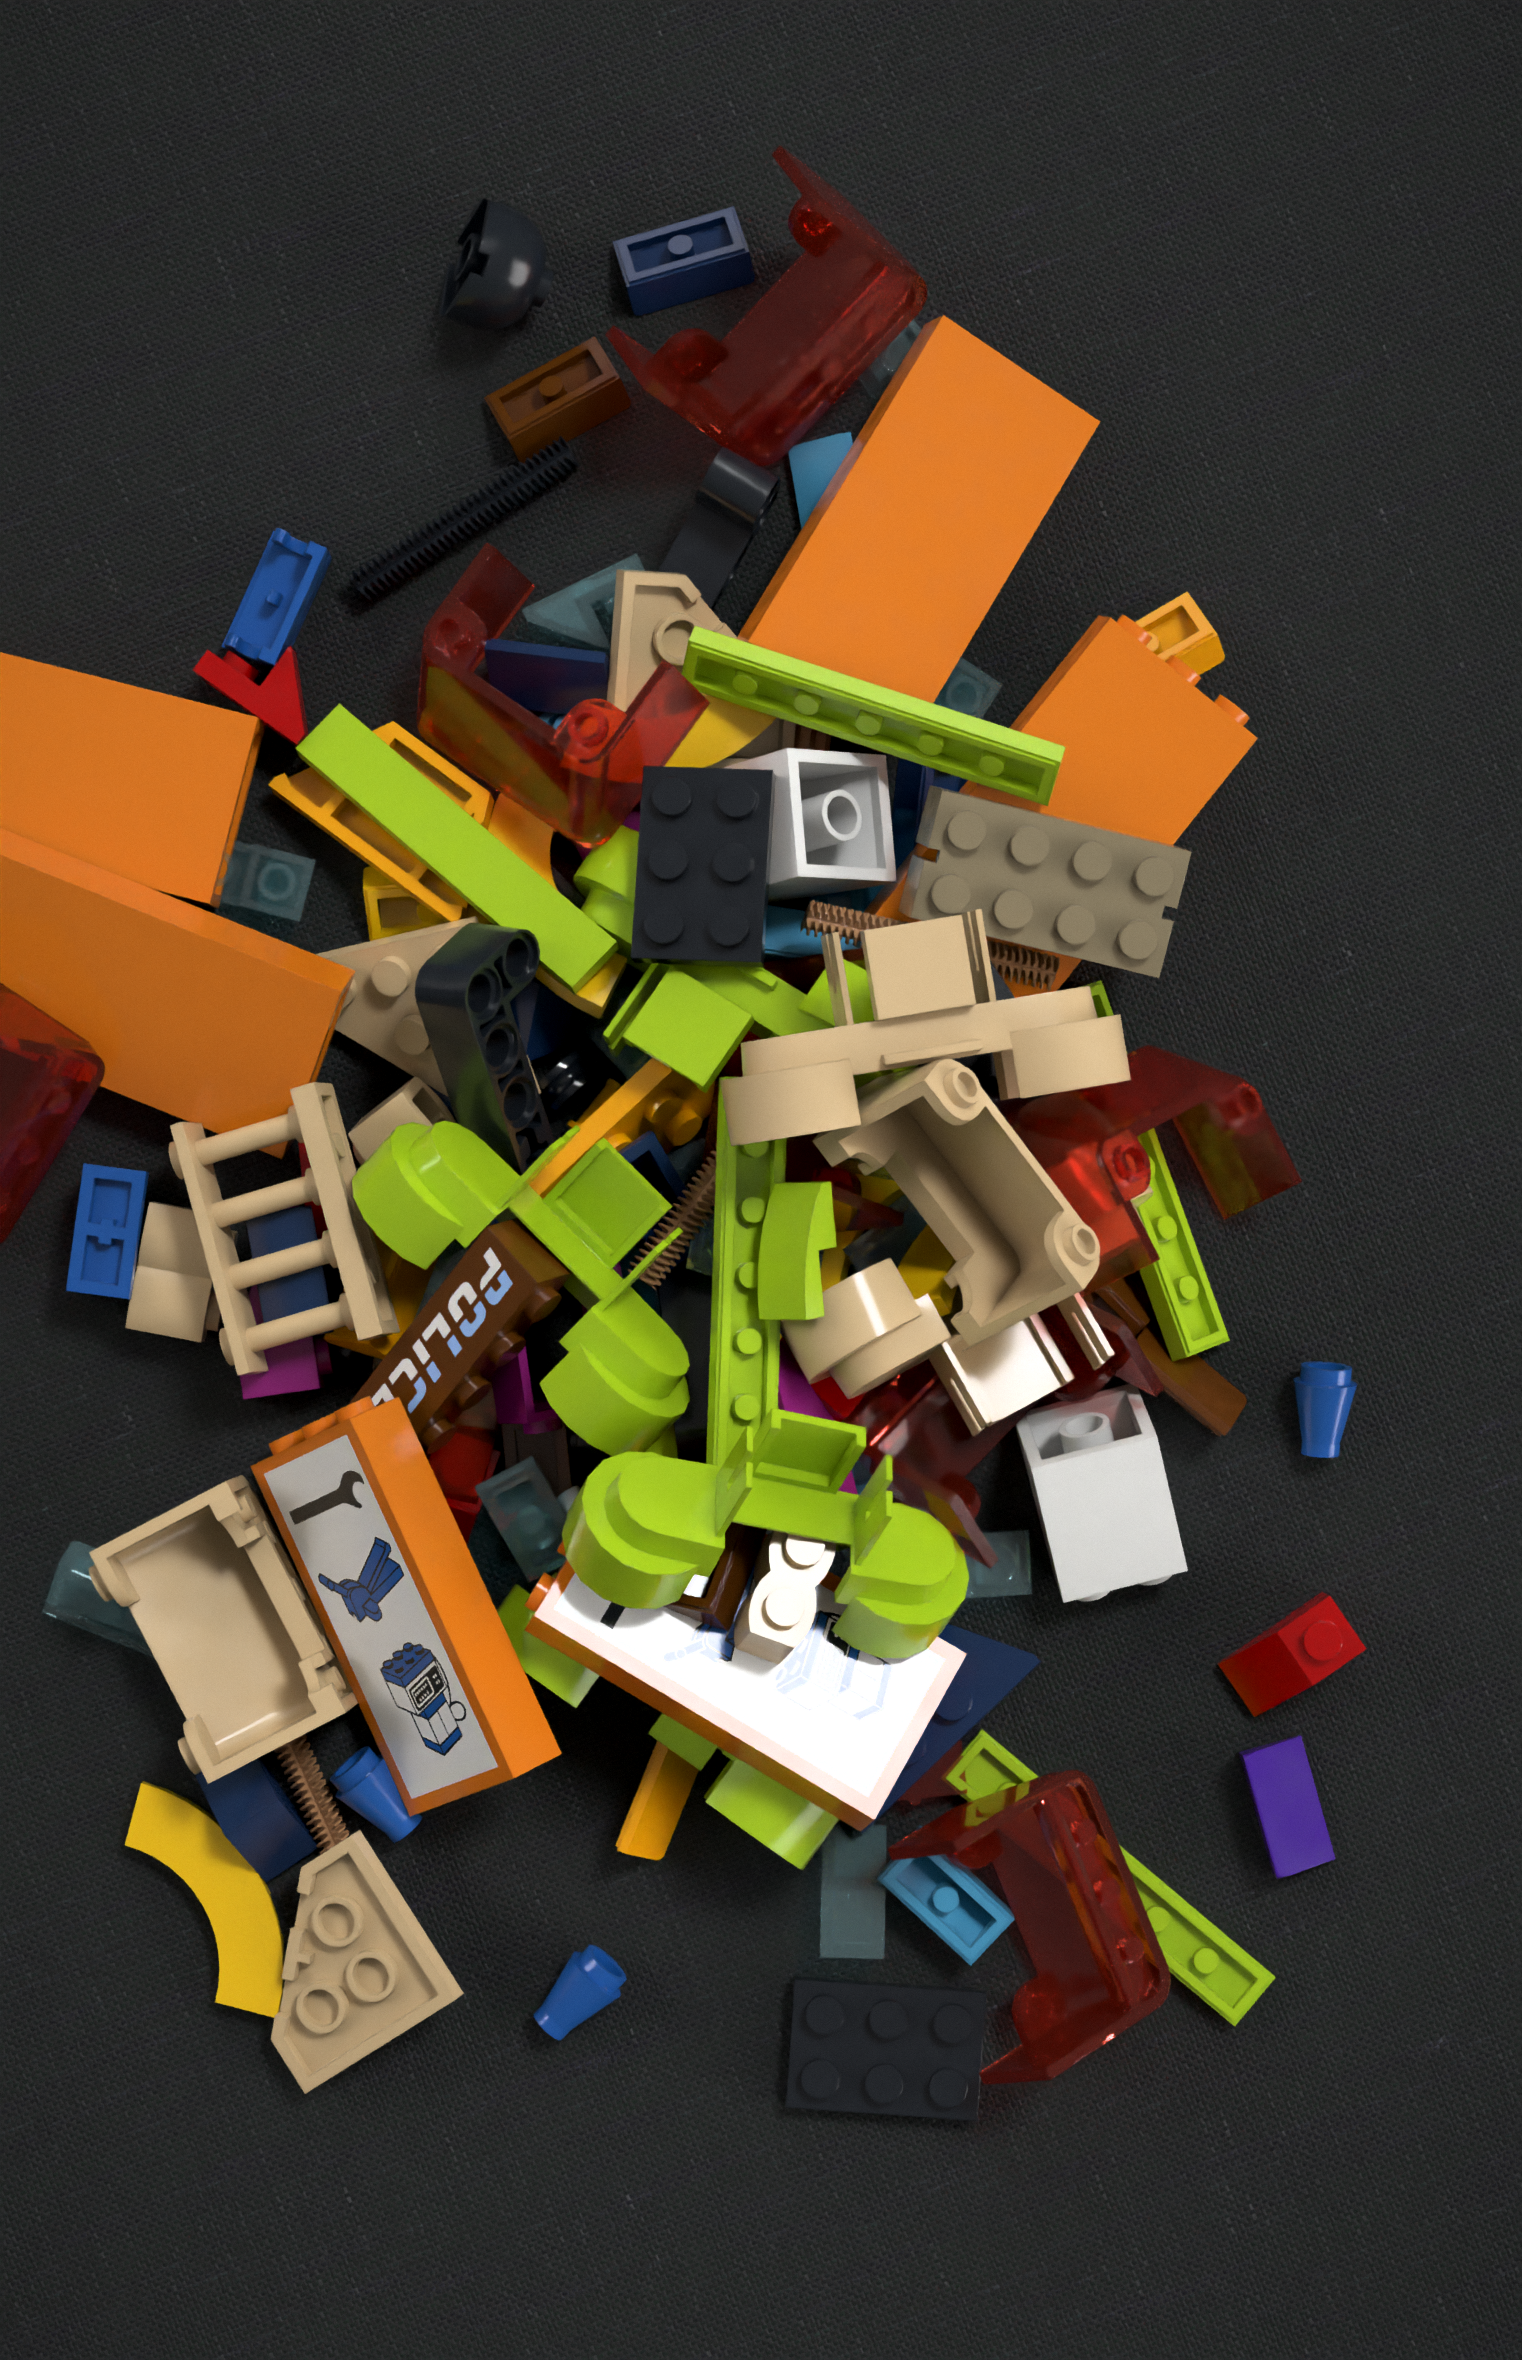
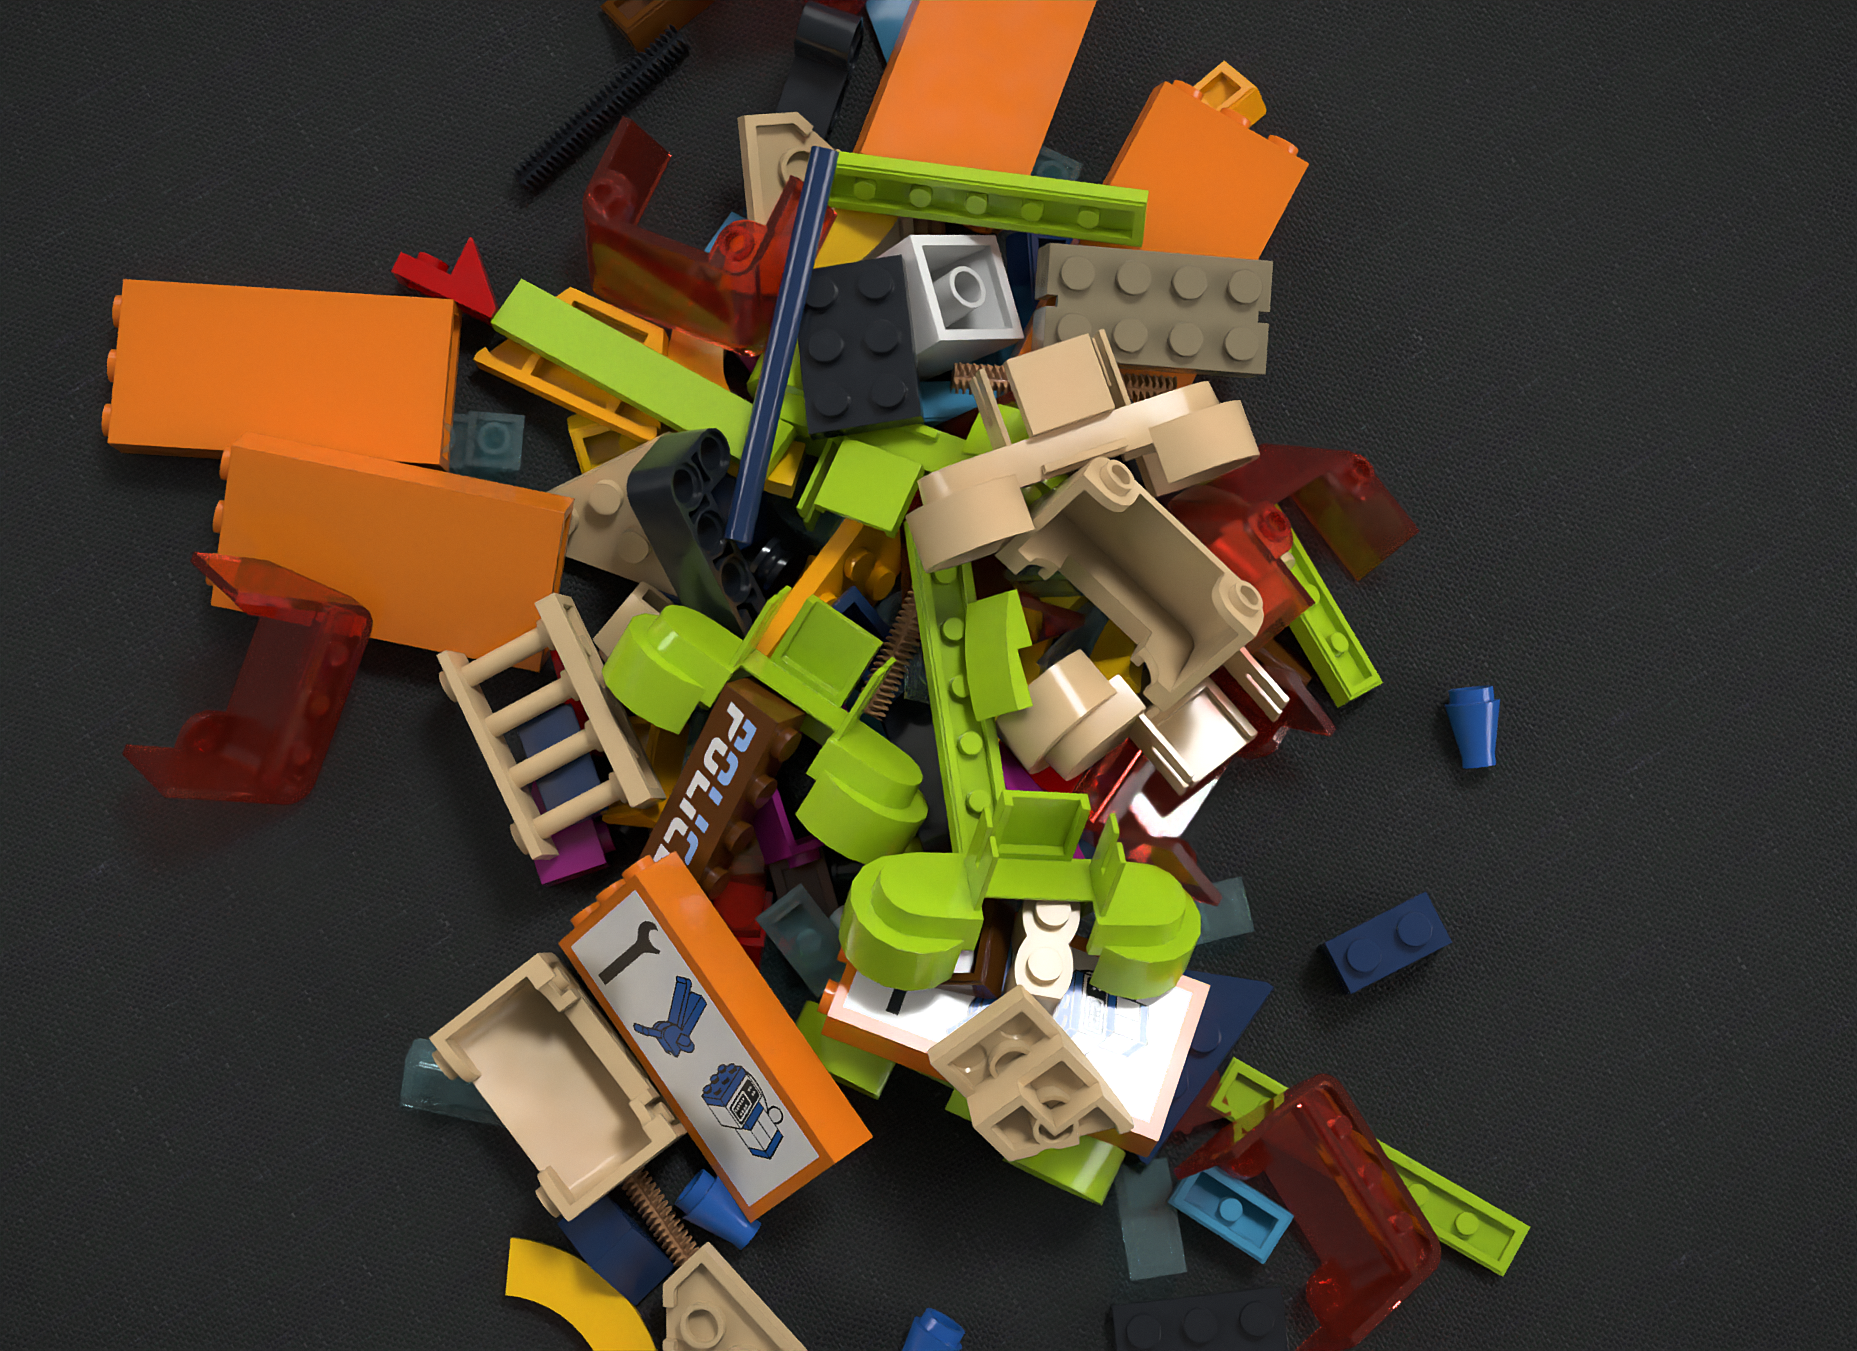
camera: 10 degrees left, 5 degrees down
(107, 1231) = (399, 762): blue hinge -> none
(172, 1278) = (463, 792): tan brick -> none
(277, 599) = (455, 201): blue hinge -> none
(546, 675) = (693, 218): dark blue slope -> none
(571, 612) = (706, 167): clear light blue slope -> none
(618, 849) = (781, 344): none -> dark blue piece
(657, 1805) = (963, 1174): light orange slope -> none
(741, 1728) = (1026, 1079): none -> tan slope
(1101, 1493) = (1299, 833): white slope -> none
(1174, 1635) = (1385, 943): none -> dark blue brick
(1192, 1383) = (1361, 727): reddish brown slope -> none
(1287, 1806) = (1510, 1076): dark purple slope -> none
(1292, 1655) = (1490, 942): red slope -> none

